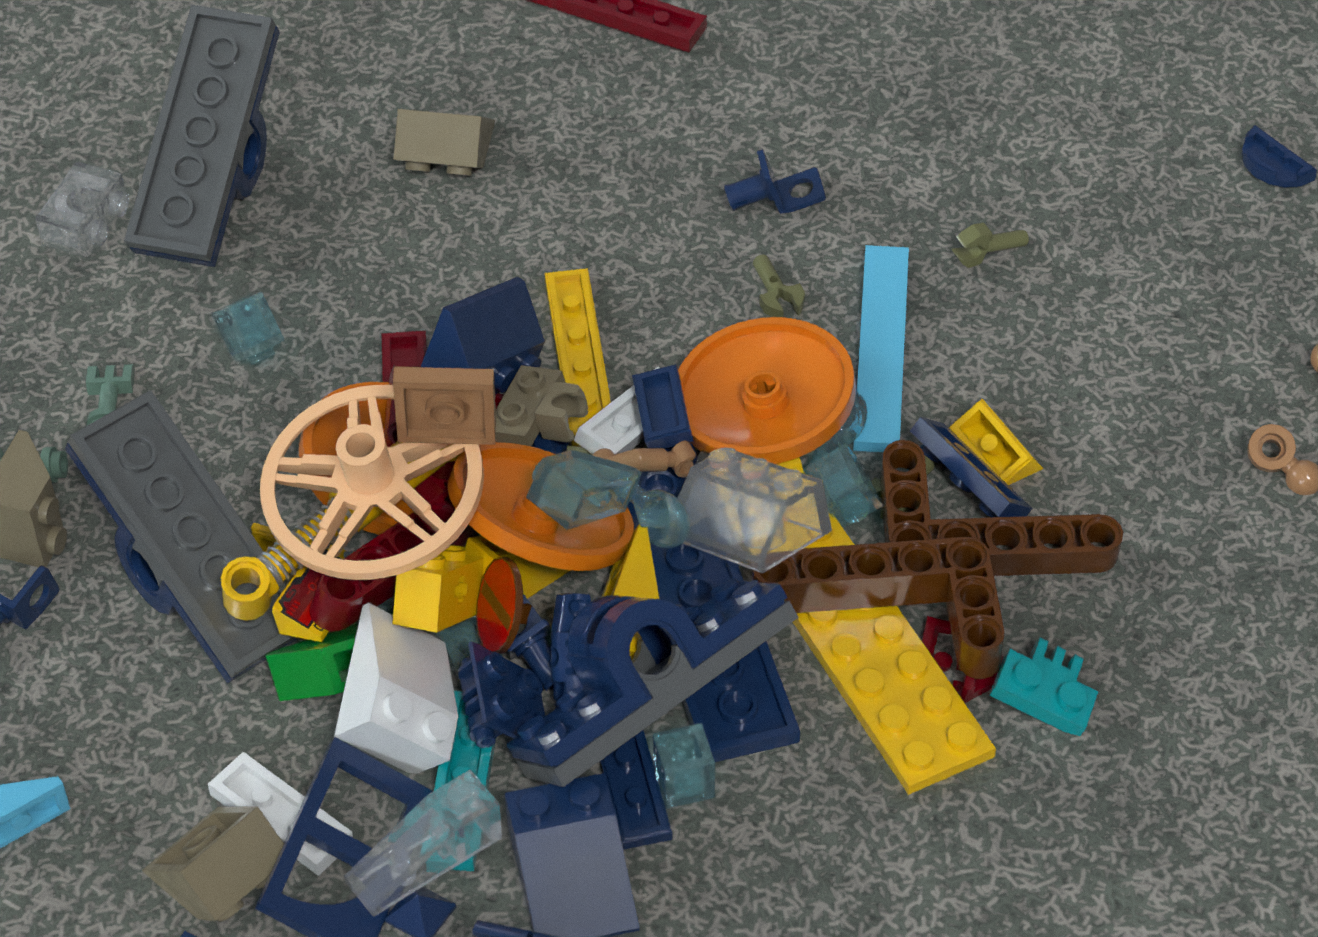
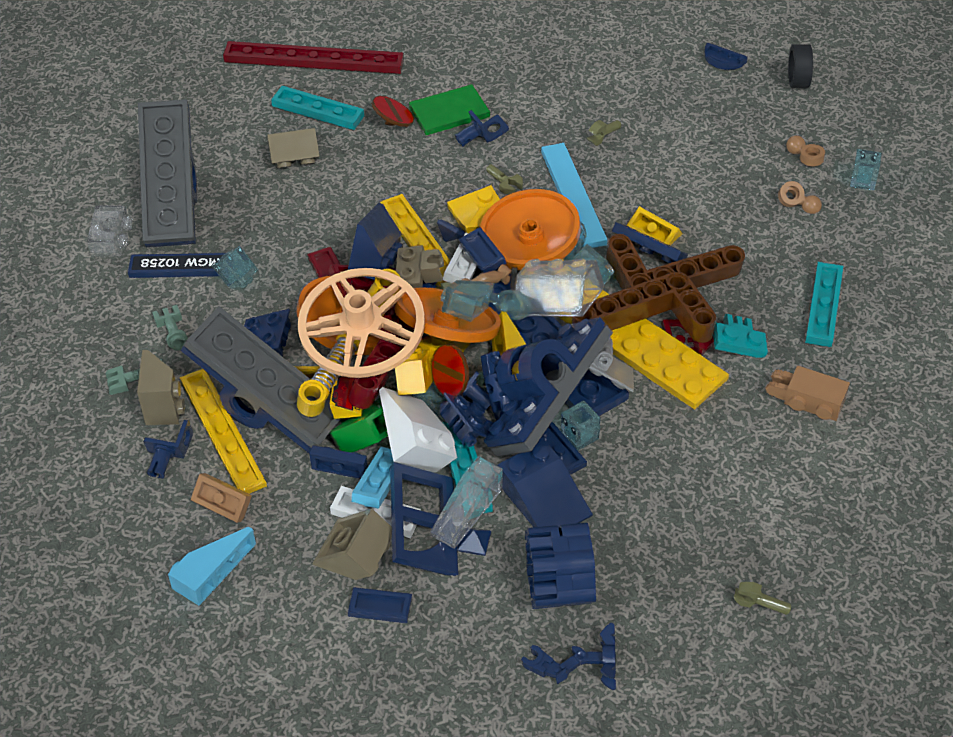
camera: 20 degrees left, 0 degrees up
(47, 714) = (221, 497): none -> medium nougat plate
(104, 616) = (223, 432): none -> yellow tile
(157, 294) = (173, 265): none -> tile
(240, 456) = (271, 328): none -> dark blue hinge
(259, 710) = (338, 462): none -> dark blue plate
(291, 764) = (375, 481): none -> medium azure plate
(445, 405) = (394, 269): medium nougat tile -> none
(519, 80) = (318, 107): none -> teal plate
(636, 354) = (449, 232): none -> dark blue slope
(638, 117) = (392, 111): none -> piece
(690, 321) = (471, 208): none -> yellow plate
(730, 135) = (448, 109): none -> green tile
(787, 676) = (612, 368): none -> light grey hinge
(1125, 825) = (809, 391): none -> medium nougat hinge
(1232, 670) = (824, 304): none -> teal plate

